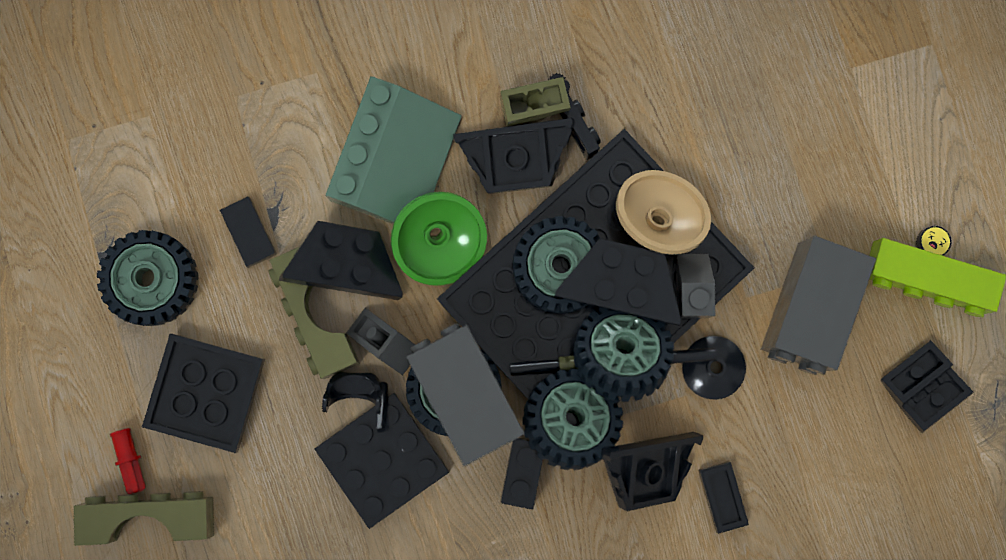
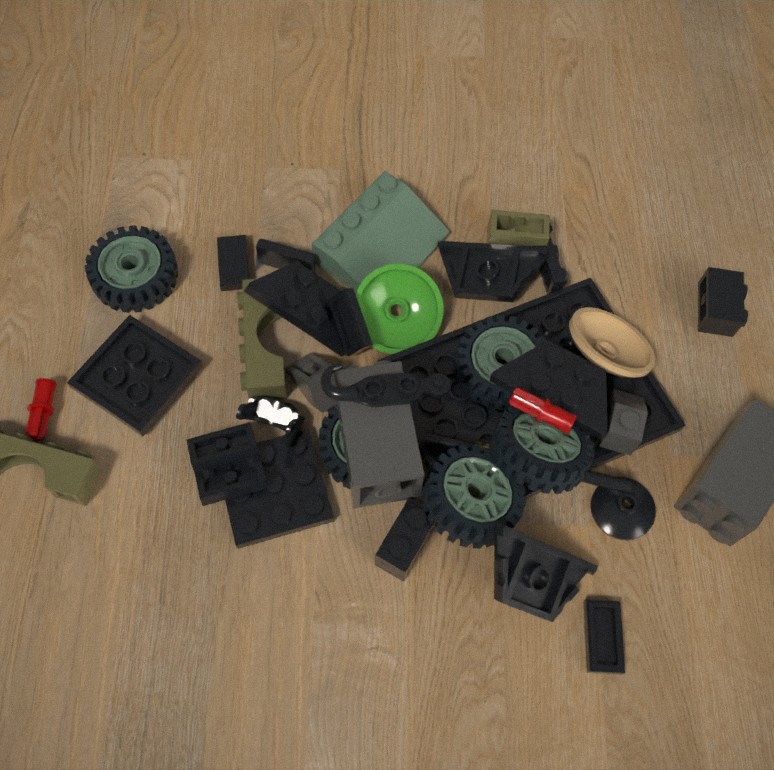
camera: 20 degrees right, 20 degrees down
(301, 211) = (280, 255): none -> black tile
(331, 459) = (226, 464): none -> black slope
(396, 271) = (350, 322): none -> black tile
(461, 364) = (385, 389): none -> black piece
(615, 320) = (542, 409): none -> red axle
(765, 110) = (721, 302): none -> black brick

